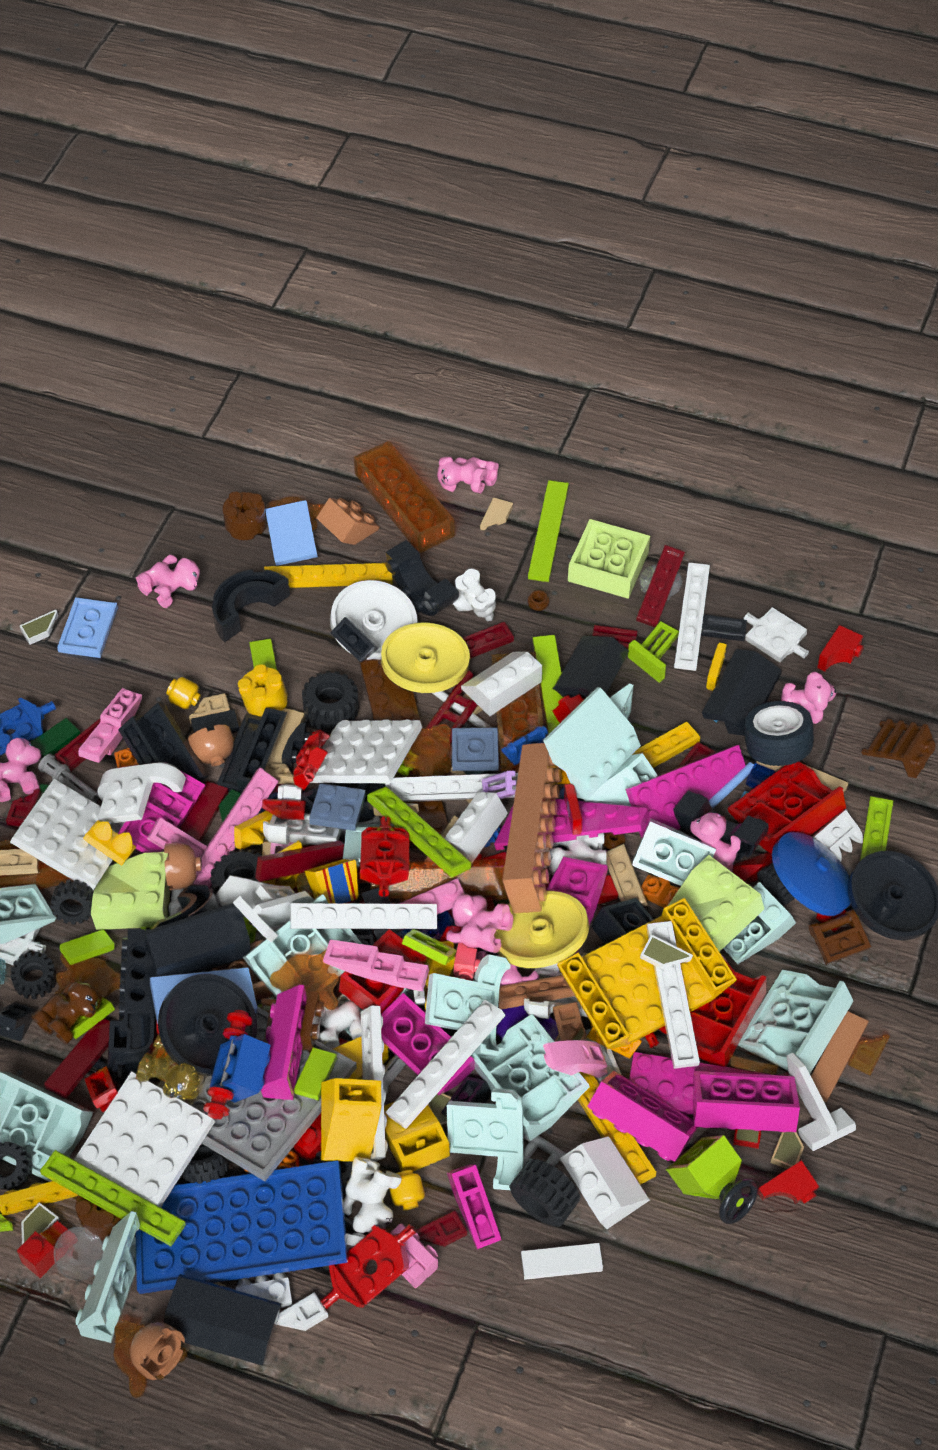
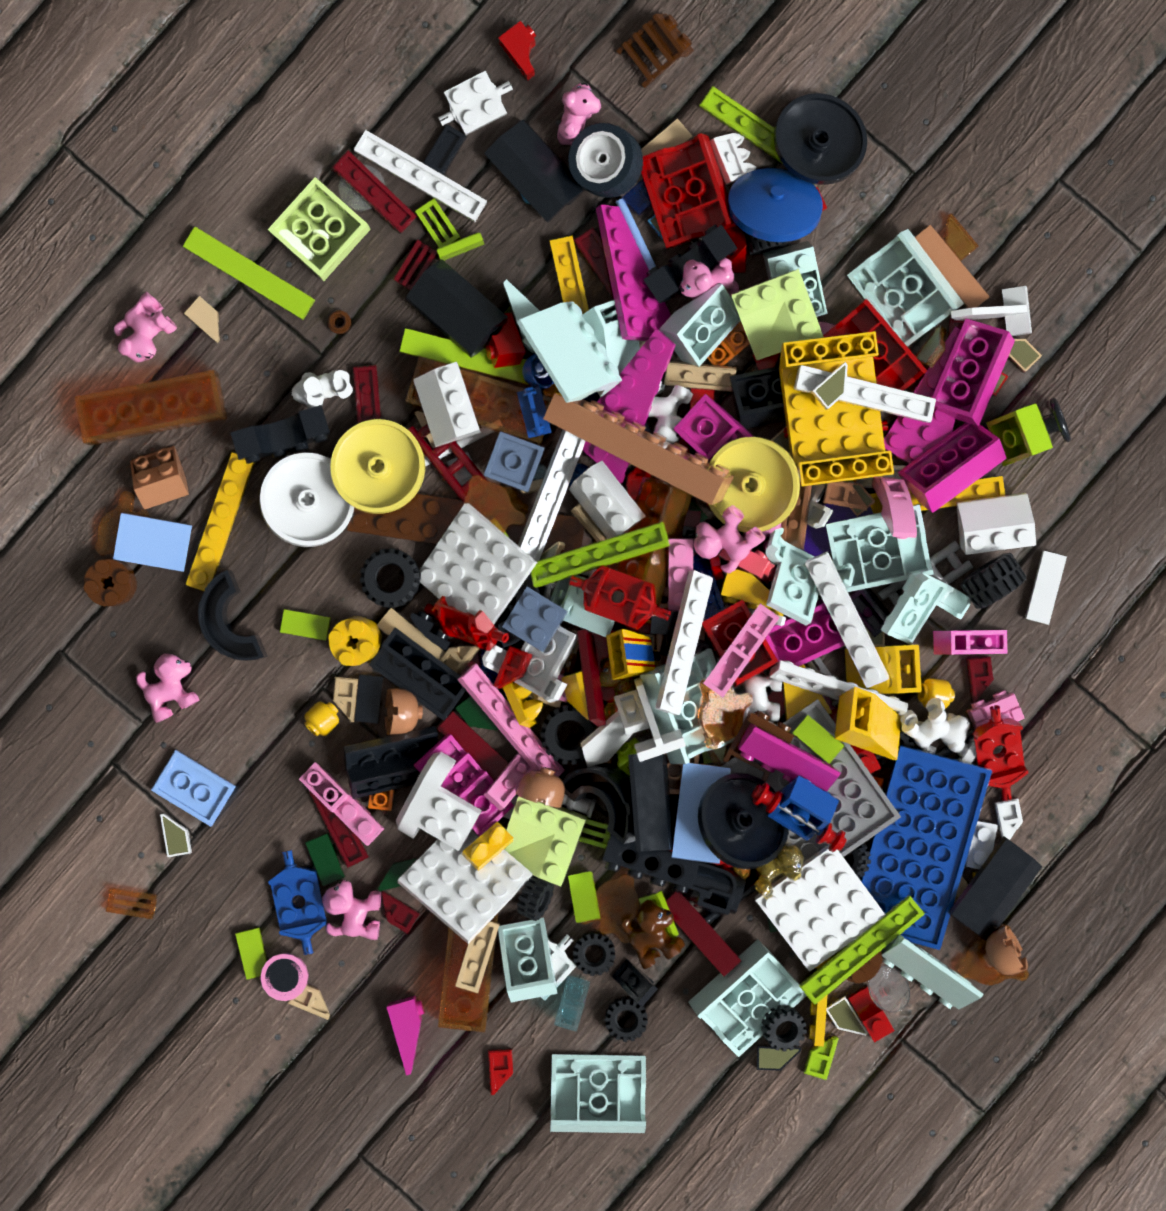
camera: 65 degrees left, 35 degrees up
(63, 775) = (373, 866): light grey pin -> none
(102, 1088) = (749, 926): red arch -> none
(354, 639) = (329, 528): black slope -> none
(429, 947) = (736, 595): lime tile -> none
(507, 784) = (577, 457): lavender tile -> none
(573, 809) = (628, 399): red tile -> none
(716, 666) = (494, 181): yellow tile -> none
(793, 1183) = (1057, 368): red arch -> none
(841, 944) = (846, 209): reddish brown plate -> none

